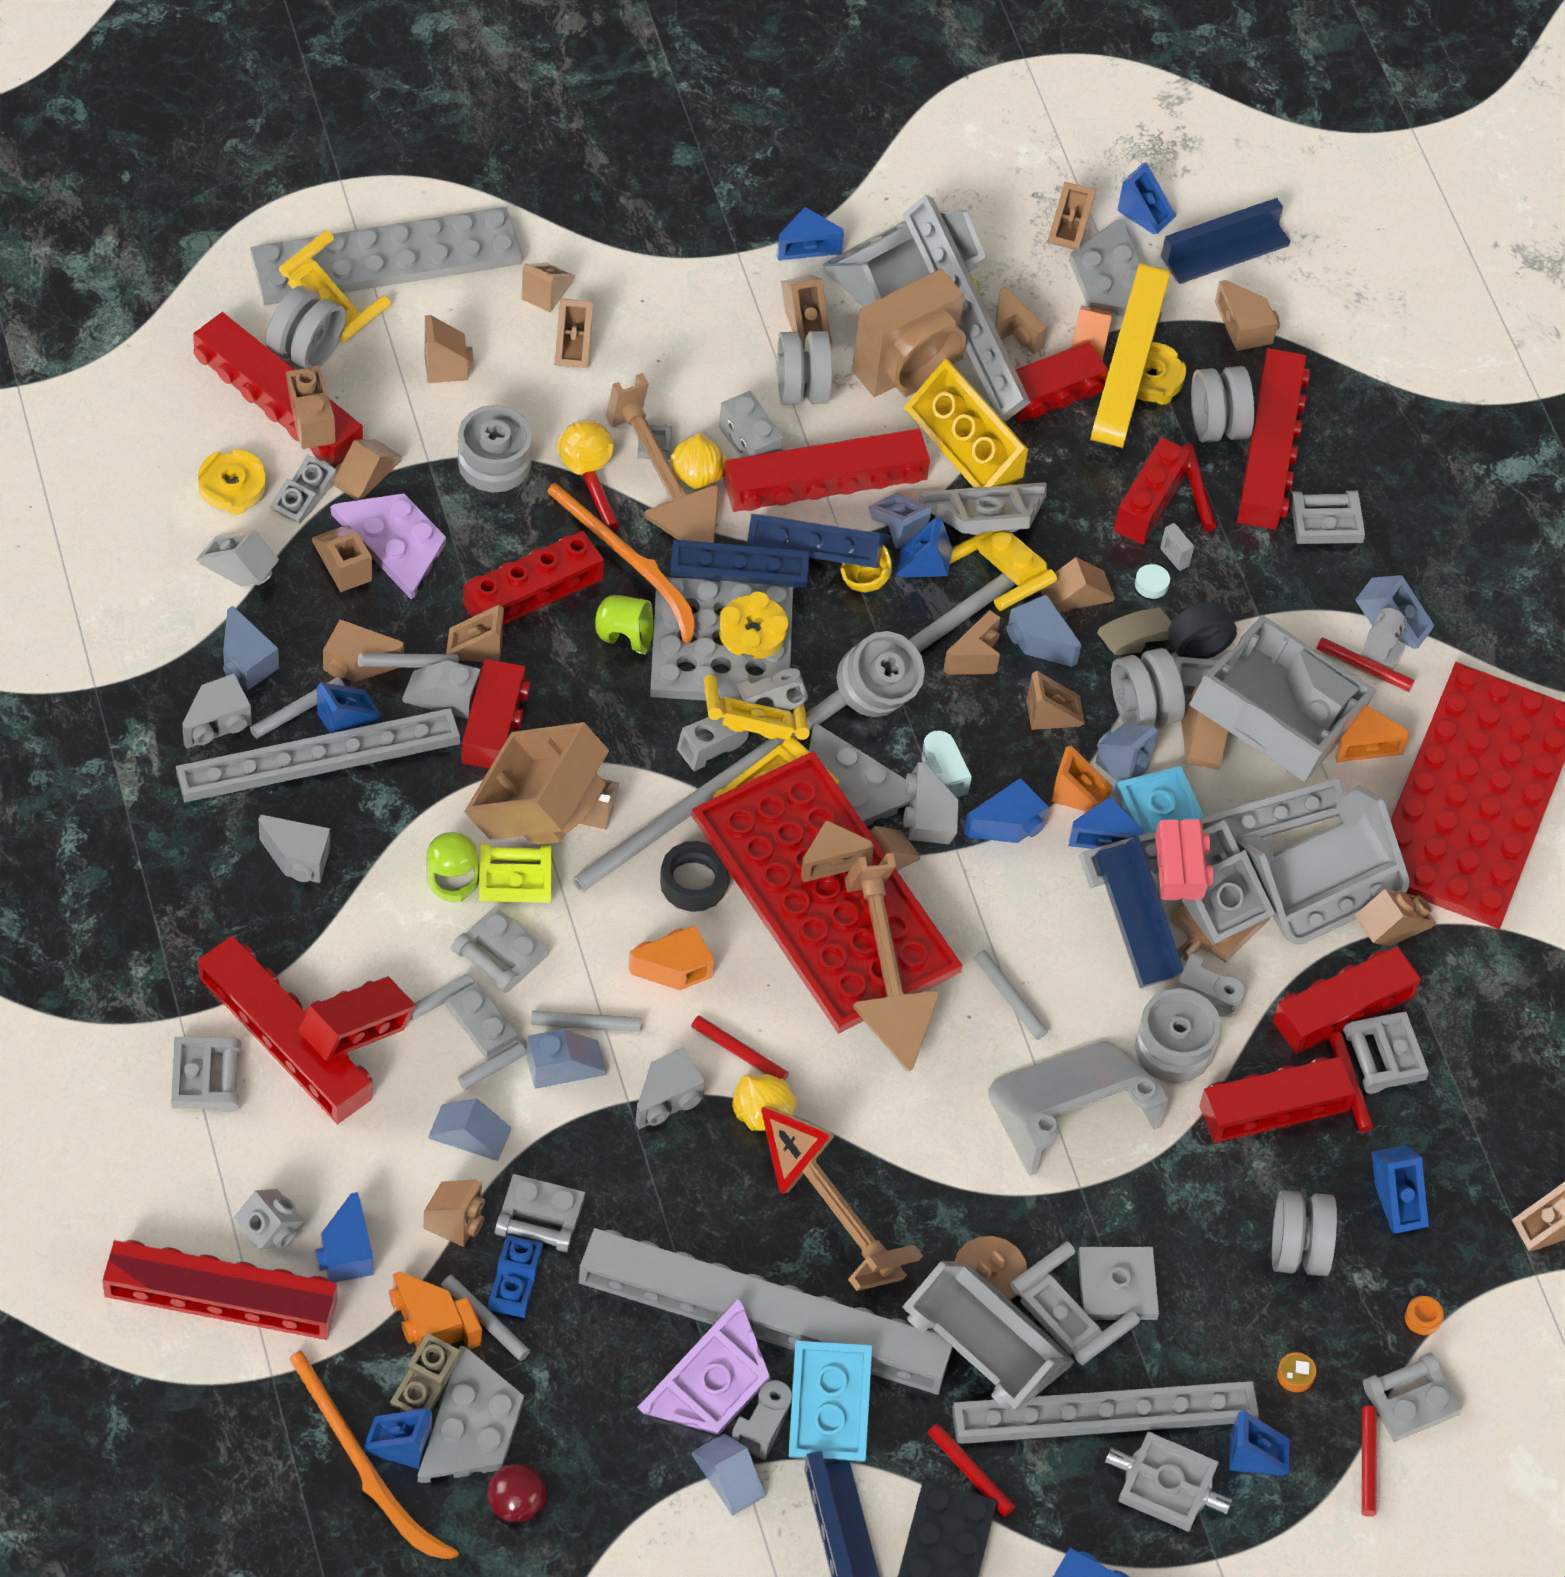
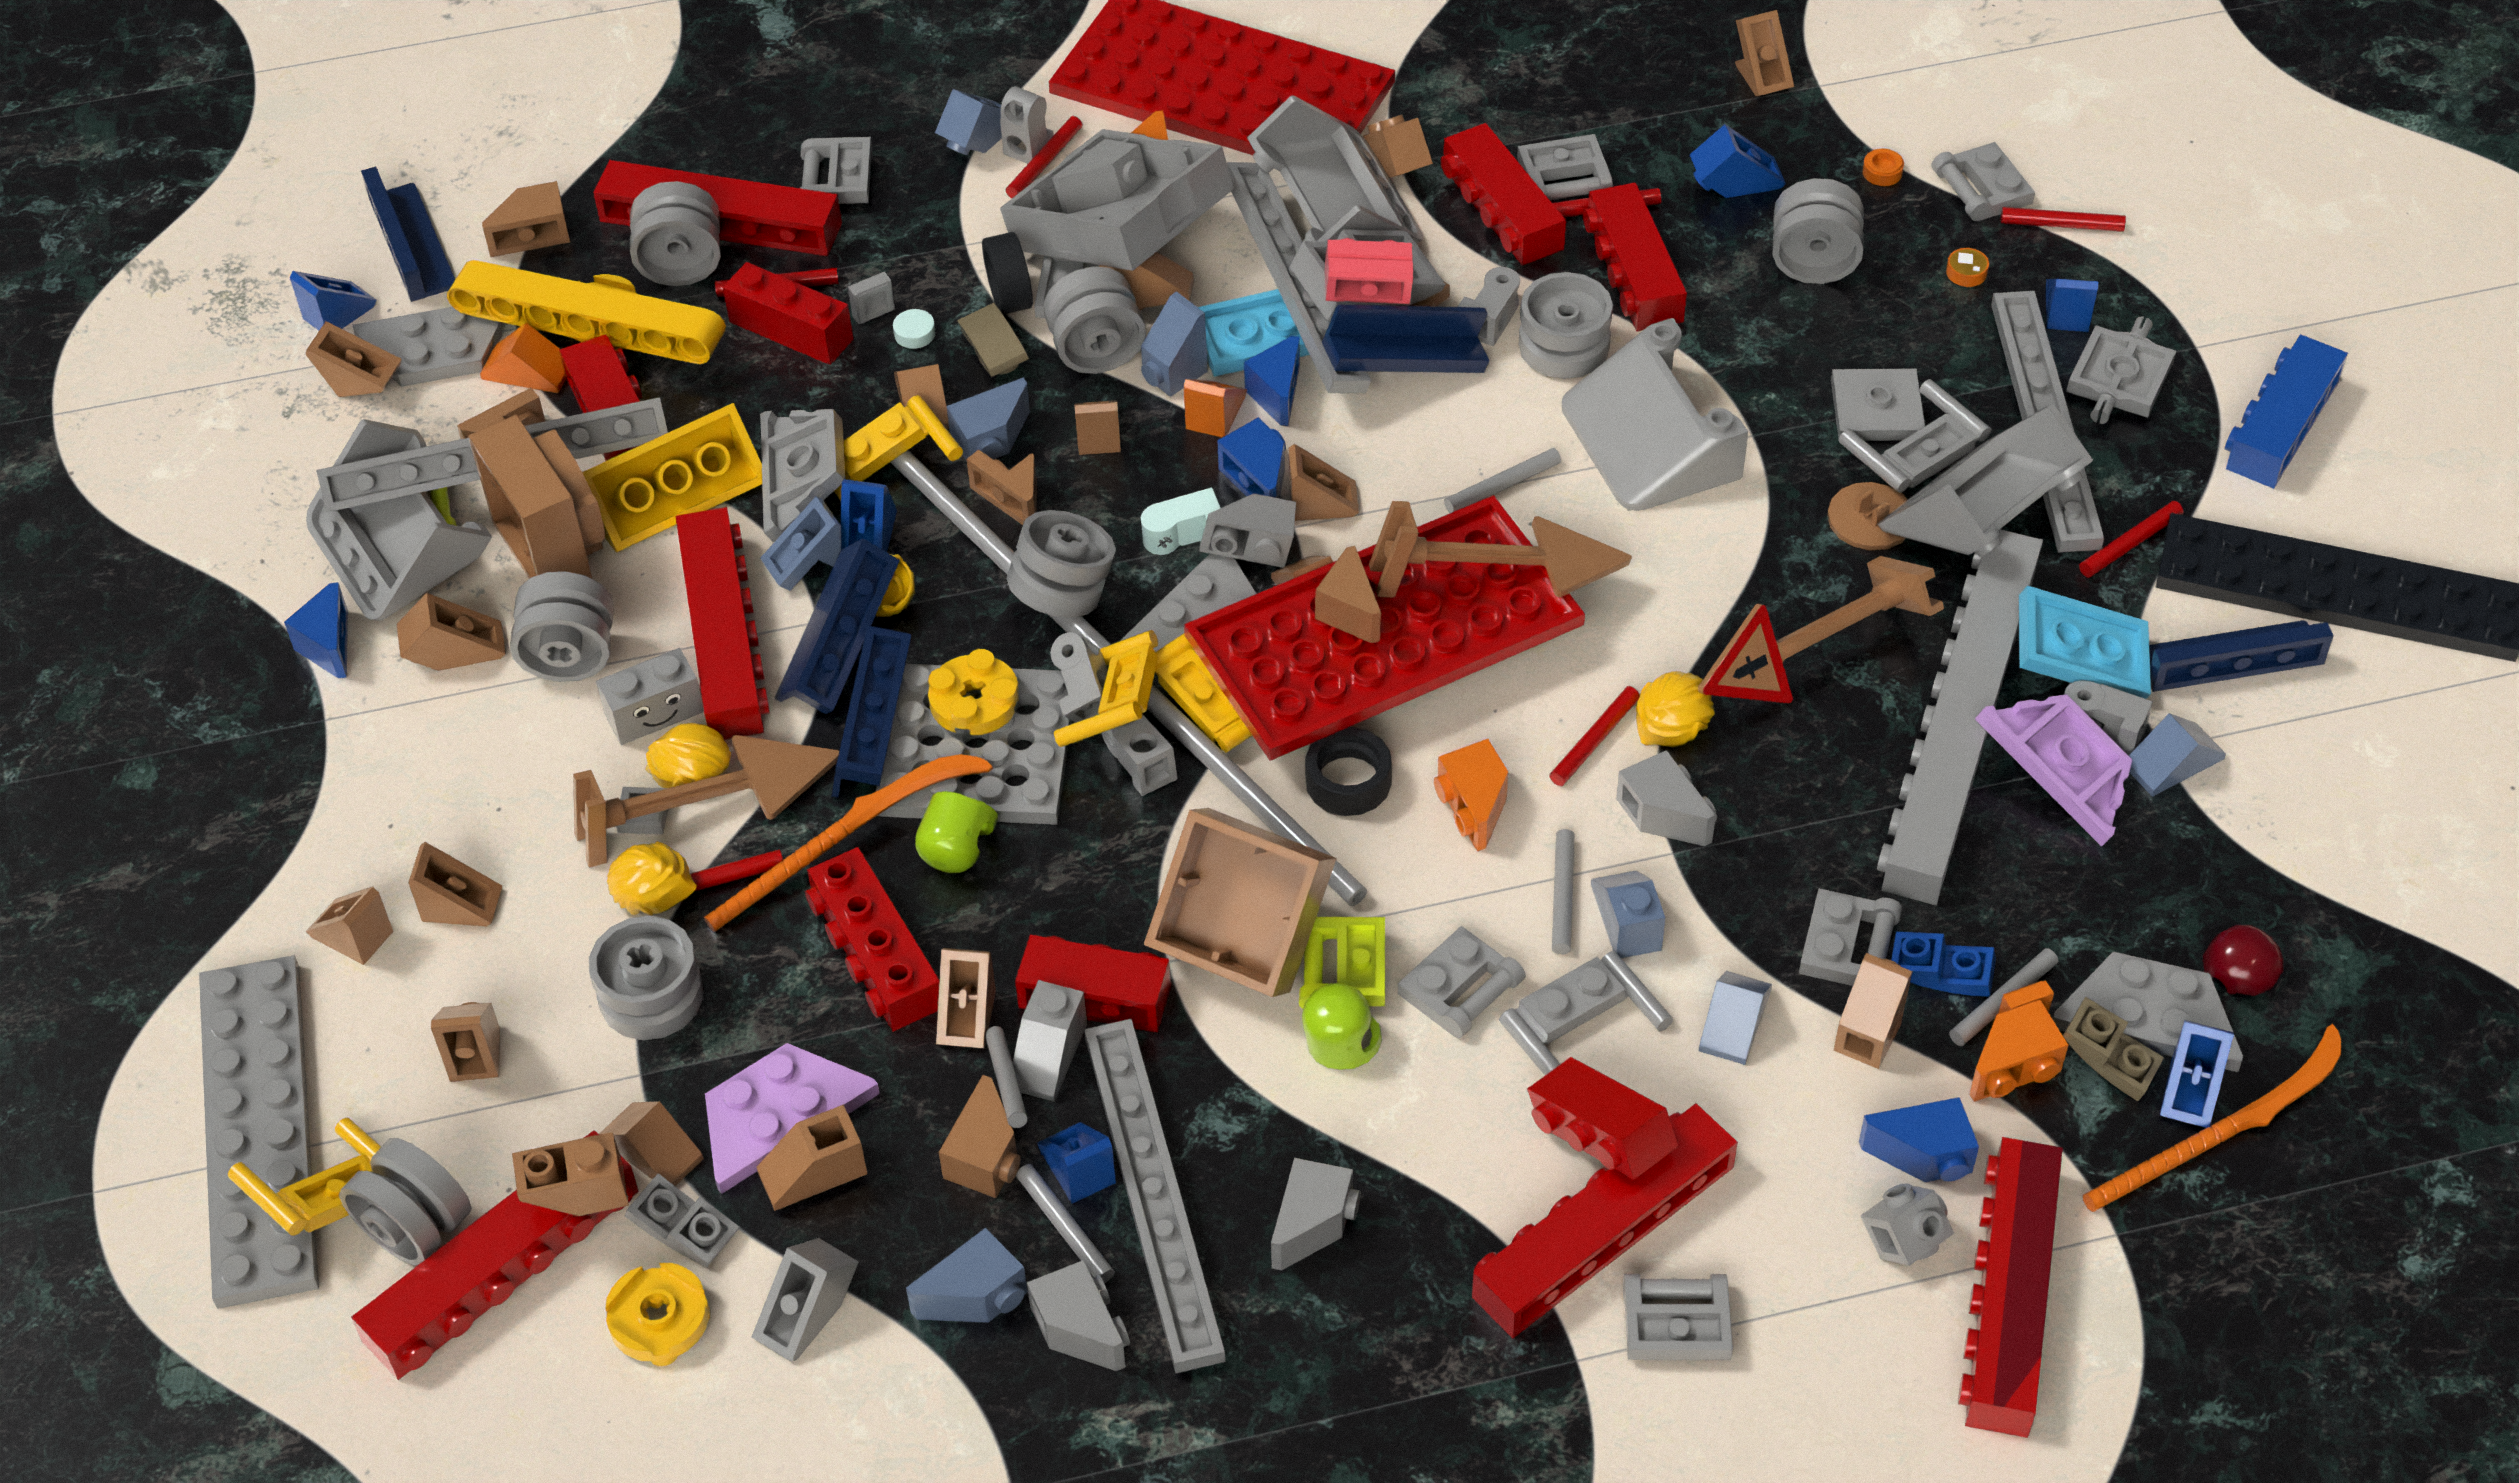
camera: 80 degrees left, 5 degrees down
(985, 855) = (1319, 488): none -> medium nougat slope

